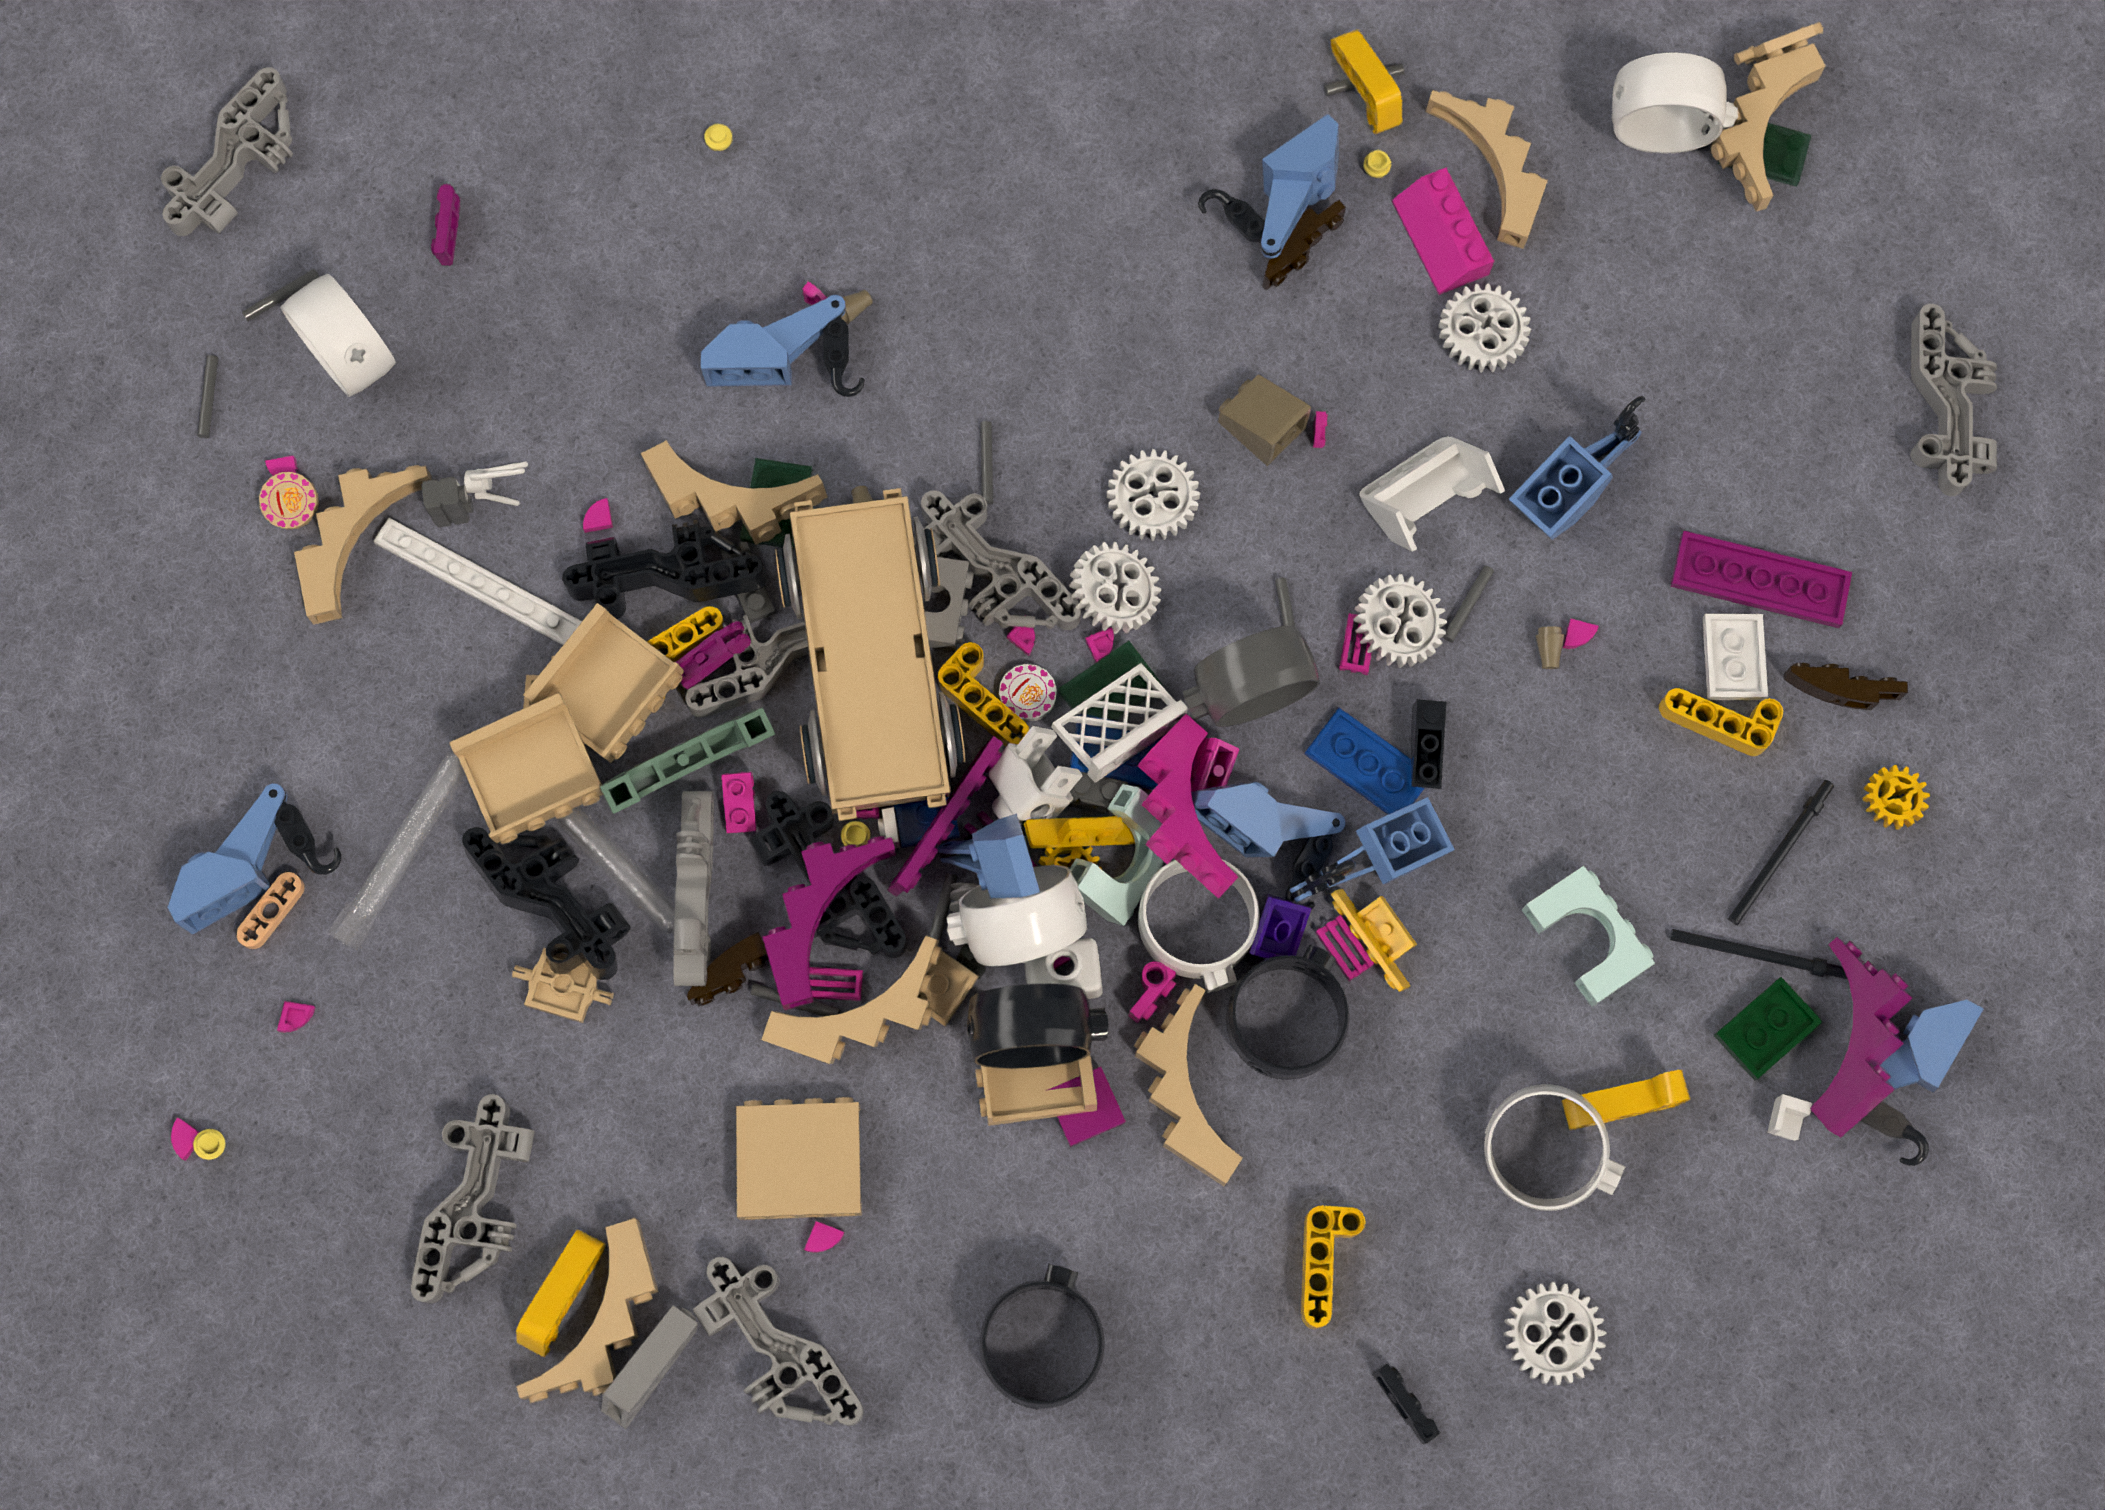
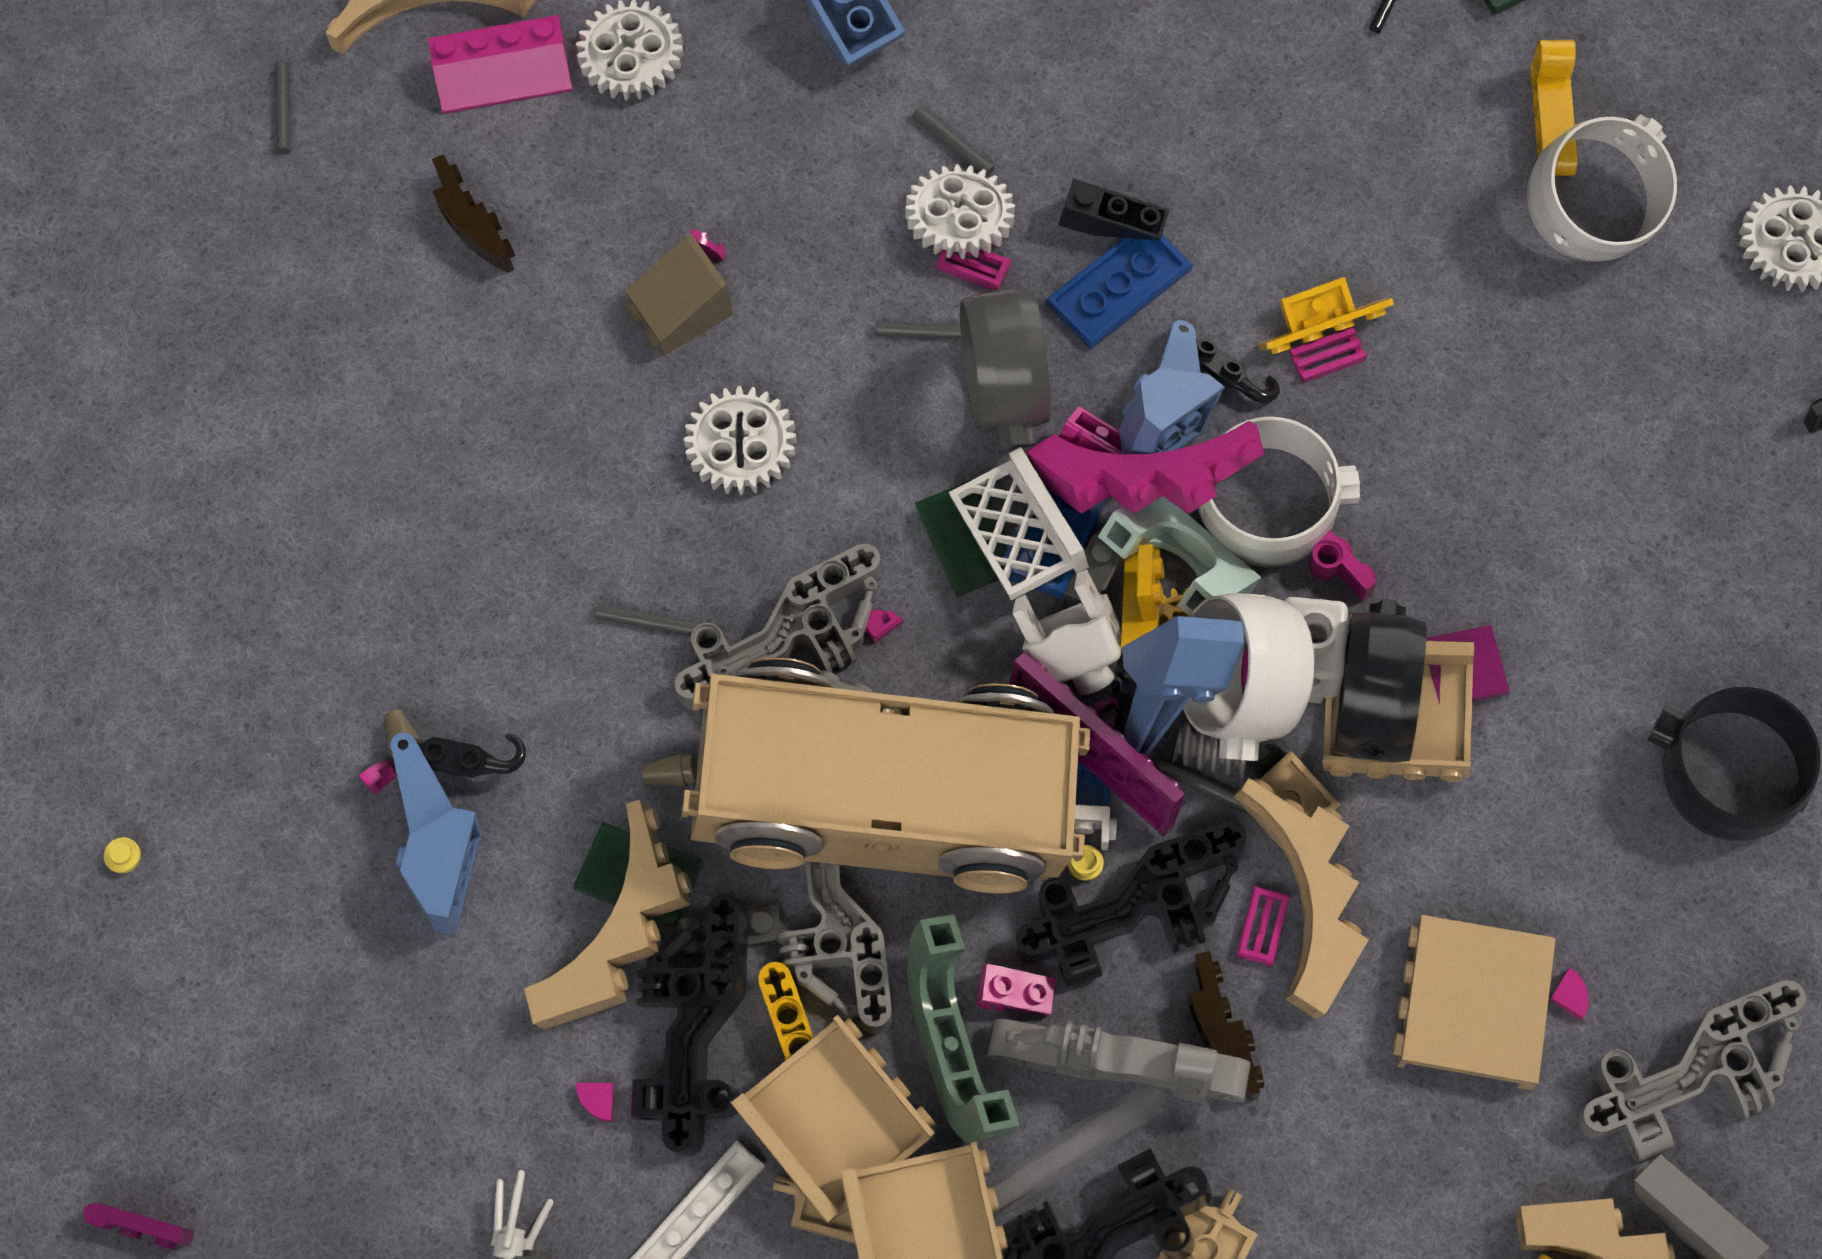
camera: 70 degrees left, 5 degrees down
(713, 653) = (824, 979): magenta hinge -> none
(773, 995) = (1276, 974): dark grey bar -> none
(828, 874) = (1226, 954): magenta arch -> none
(988, 703) = (954, 674): yellow beam -> none
(1028, 692) = (950, 631): white tile -> none
(1100, 643) = (909, 538): dark pink tile -> none
(1115, 587) = (847, 503): white gear -> none
(1167, 1053) = (1464, 566): tan arch -> none
(1279, 928) = (1292, 403): dark purple slope -> none
(1293, 178) = (397, 204): medium blue slope -> none
(1315, 964) = (1411, 366): black cylinder -> none
(1323, 1267) = (1689, 449): yellow beam -> none
(1370, 79) = (287, 94): yellow beam -> none
(1377, 164) = (393, 116): light yellow plate -> none
(1394, 845) = (1229, 263): medium blue slope -> none
(1426, 482) = (796, 150): white windscreen -> none
(1550, 646) = (1024, 69): dark tan cone -> none
(1578, 633) = (1015, 40): dark pink tile -> none
(1582, 895) = (1393, 75): light aqua arch -> none

